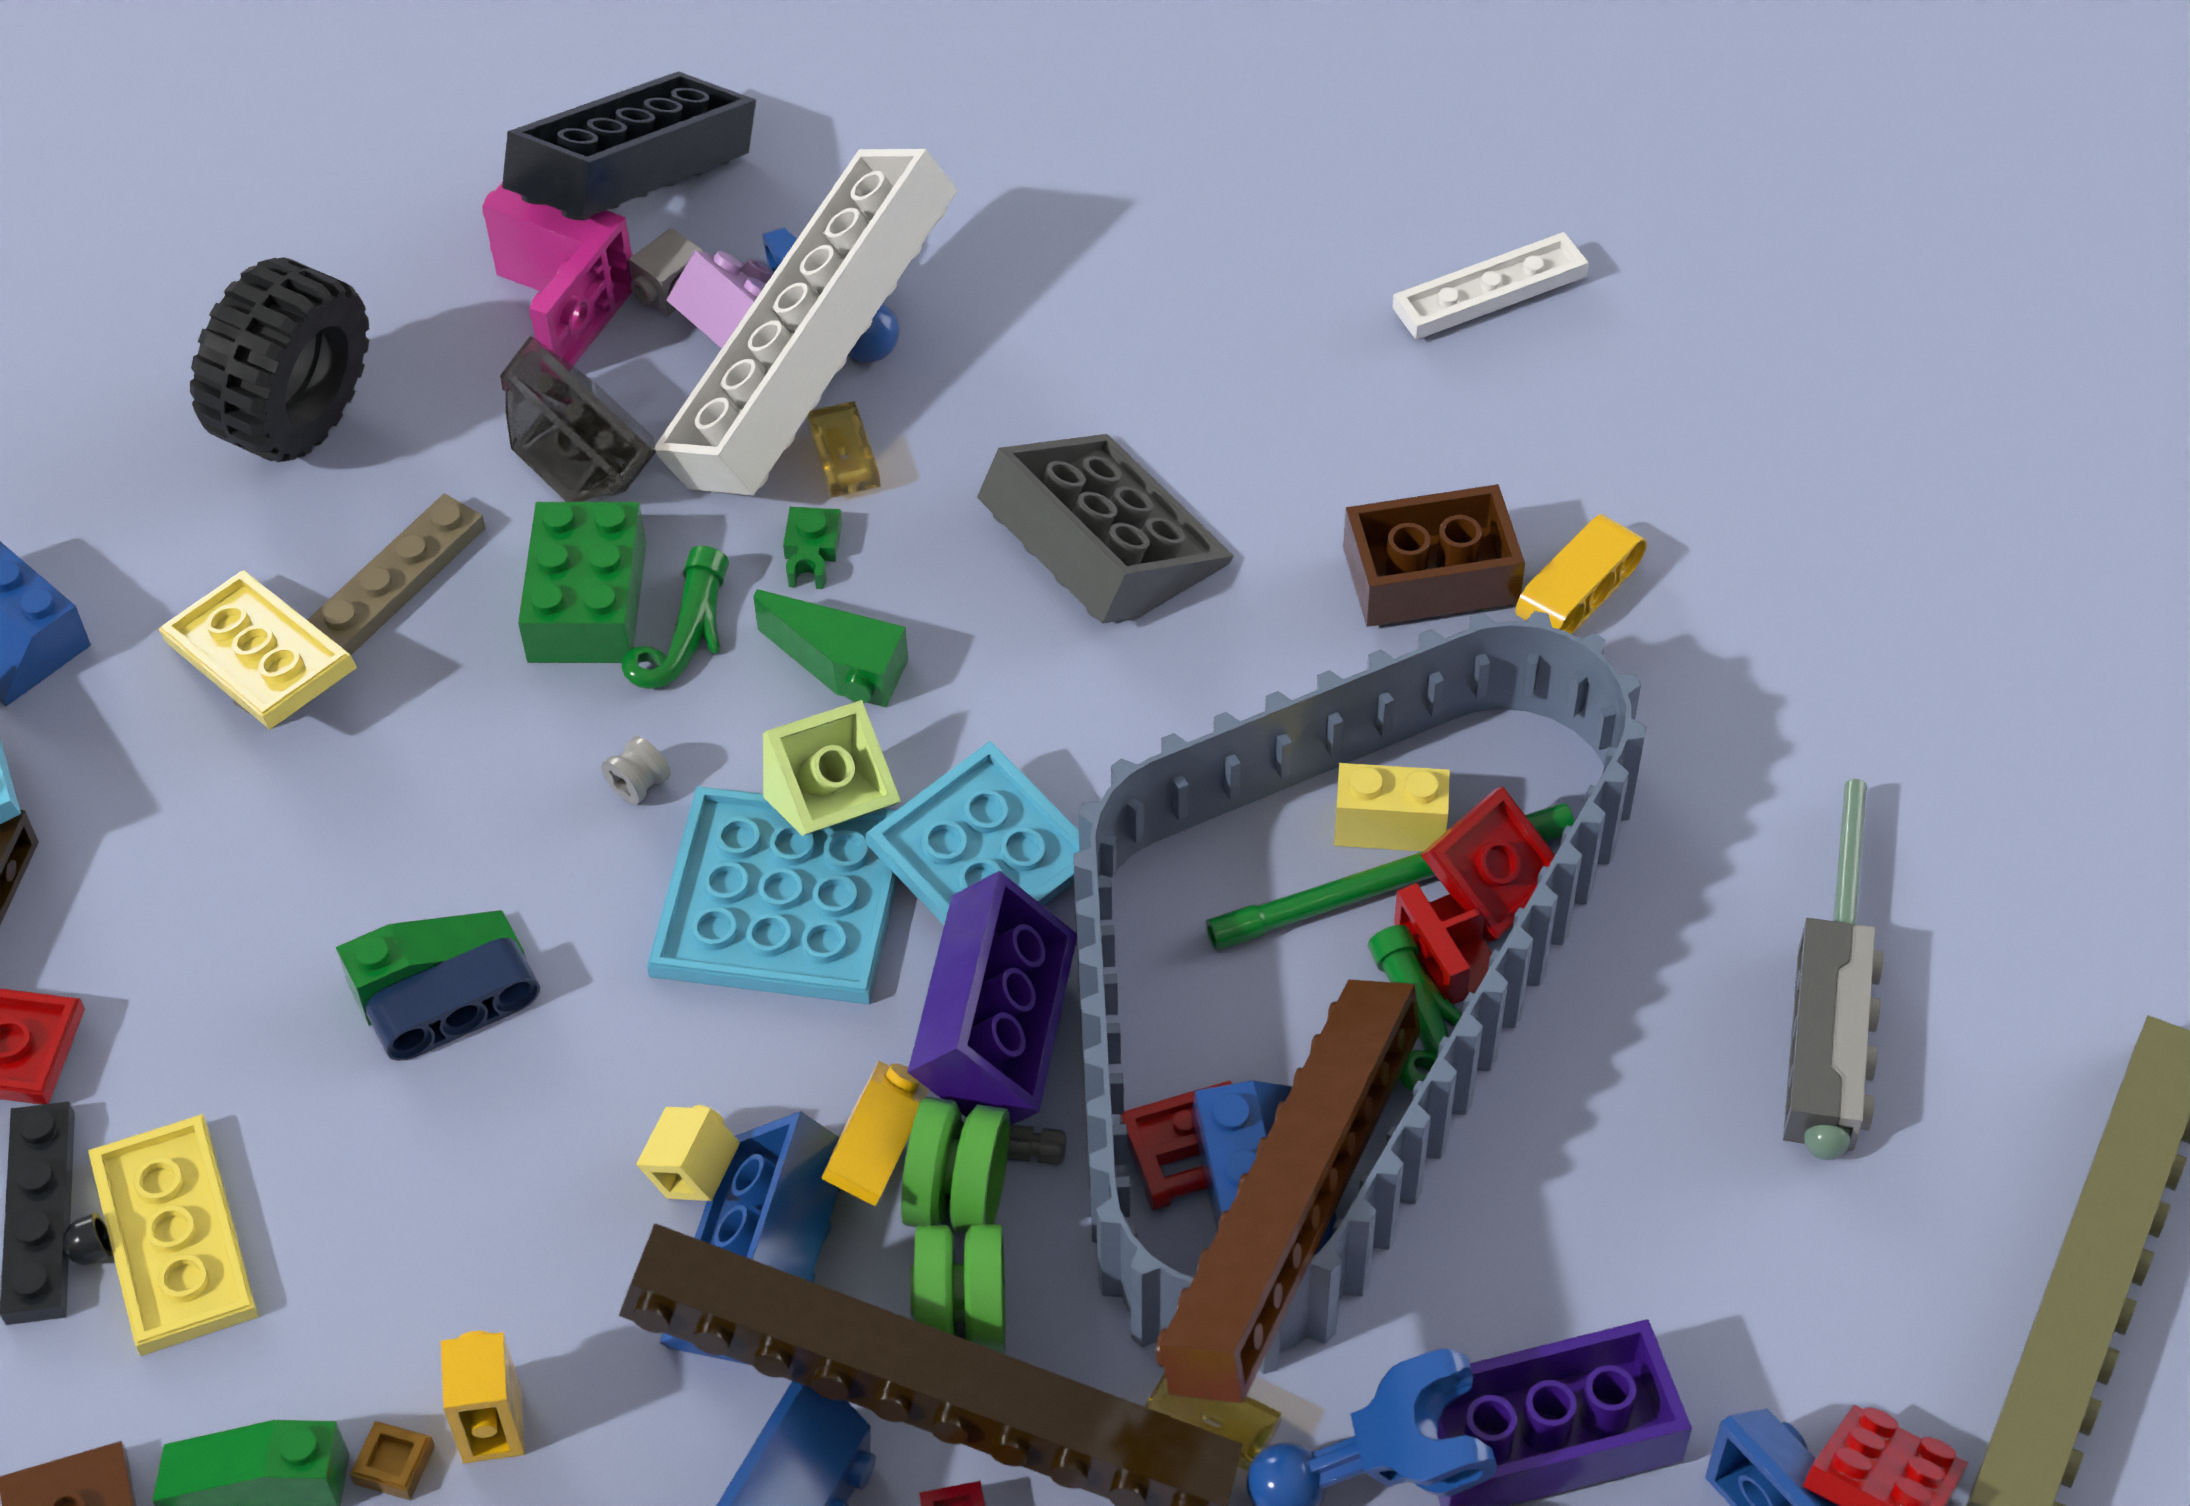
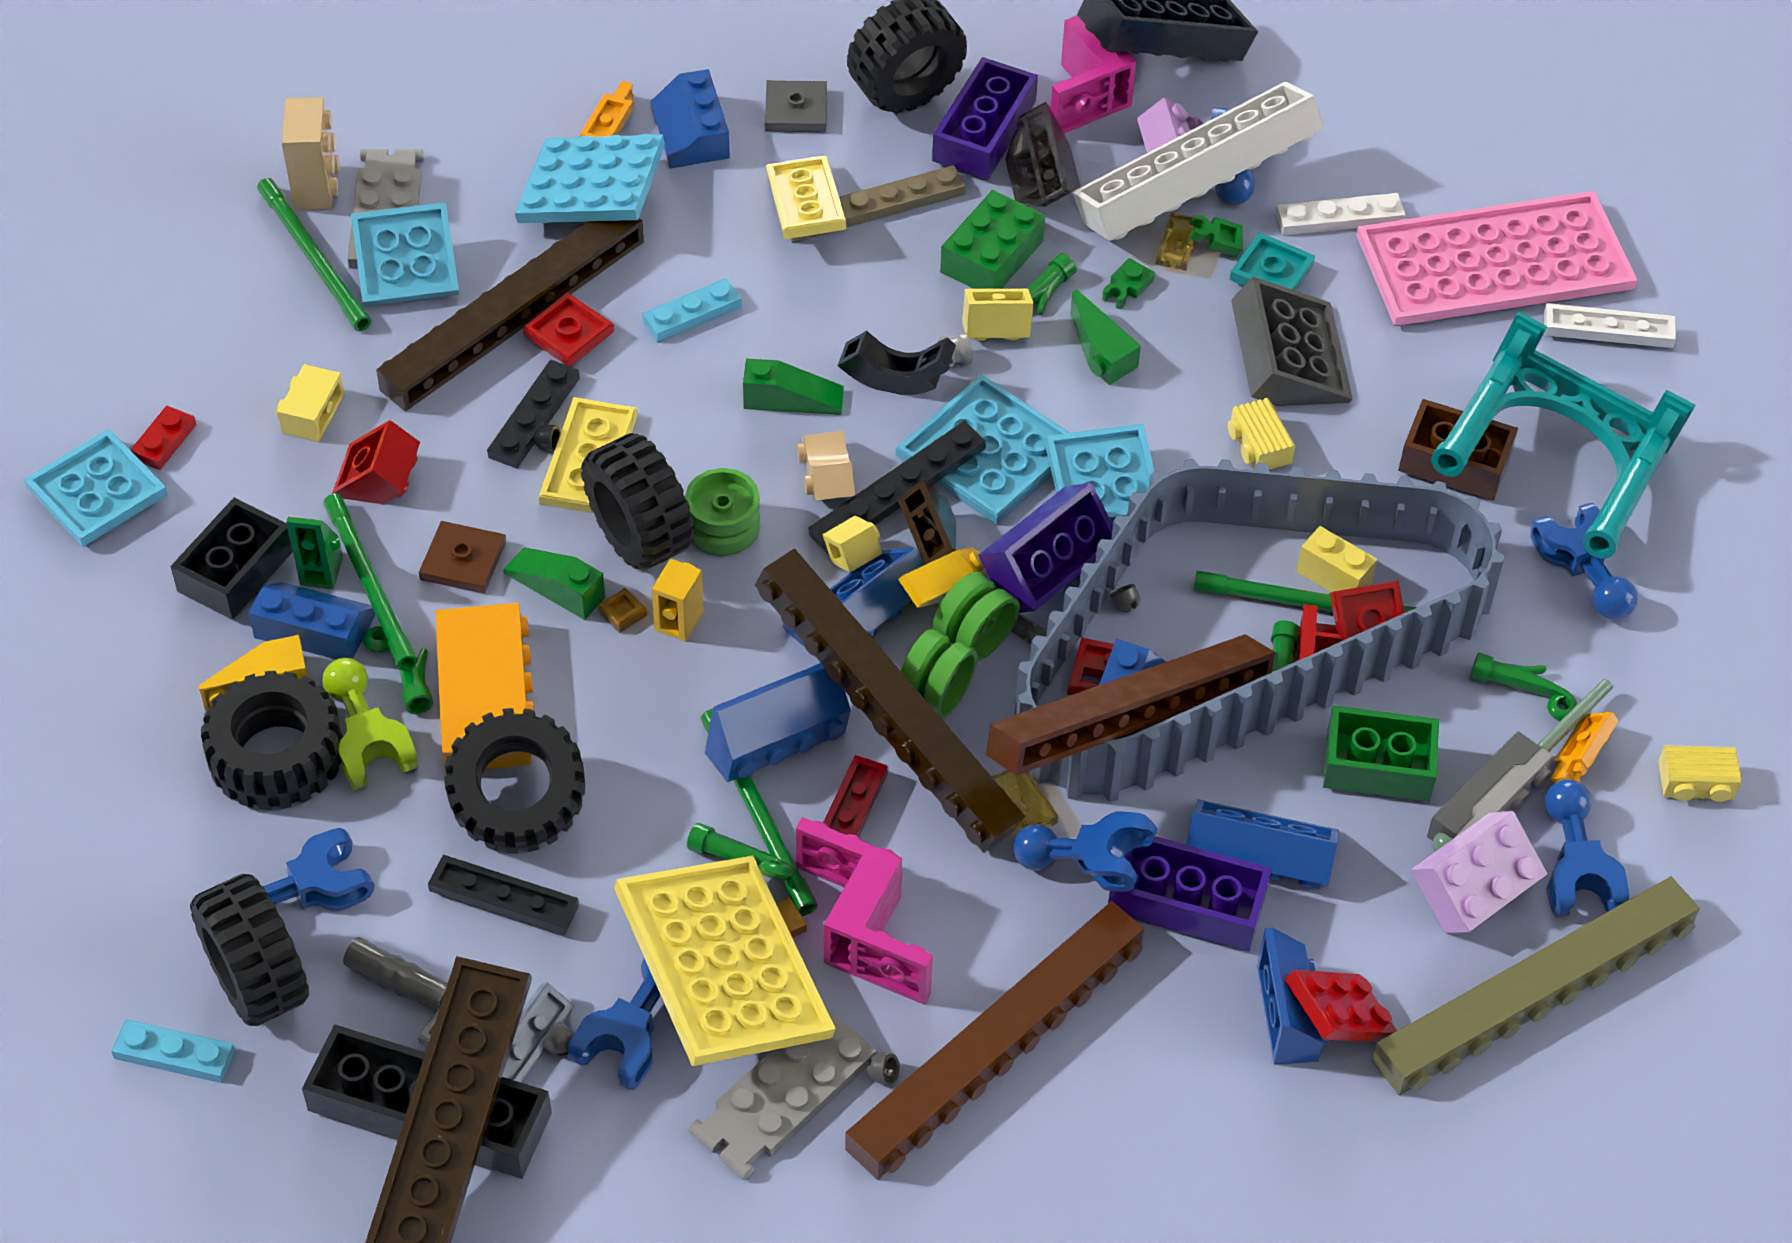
camera: 30 degrees right, 0 degrees up
(144, 517) = (796, 105): none -> dark grey plate
(186, 912) = (691, 310): none -> medium azure plate
(324, 1273) = (637, 501): none -> black tyre
(447, 402) = (984, 118): none -> dark purple brick
(452, 999) = (788, 414): dark blue beam -> none
(455, 1211) = (724, 511): none -> bright green wheel
(566, 1050) = (826, 465): none -> tan brick
(571, 847) = (893, 370): none -> black arch
(659, 267) = (1144, 97): light grey brick -> none
(664, 682) = (997, 313): none -> light yellow brick
(695, 1018) = (881, 497): none -> black plate
(791, 1061) = (929, 521): none -> dark brown slope
(826, 769) = (1049, 395): yellowish green slope -> none
(898, 408) = (1221, 234): none -> green plate
(992, 416) = (1272, 262): none -> teal plate
(1031, 303) = (1338, 213): none -> white plate
(1136, 1015) = (1125, 598): none -> dark grey hinge
(1155, 673) = (1261, 434): none -> light yellow brick
(1277, 267) = (1495, 258): none -> bright pink plate
(1564, 407) = (1581, 401): none -> teal arch
(1583, 574) = (1521, 504): yellow beam -> none
(1589, 1279) = (1281, 843): none -> blue slope
(1652, 1053) = (1381, 753): none -> green brick
(1689, 611) = (1562, 546): none -> blue piece
(1689, 849) = (1524, 679): none -> green plant
(1894, 896) = (1583, 746): none -> light orange hinge
(1911, 1157) = (1479, 872): none -> lavender brick
(2013, 1061) = (1580, 861): none -> blue piece
(2059, 845) = (1699, 772): none -> light yellow brick

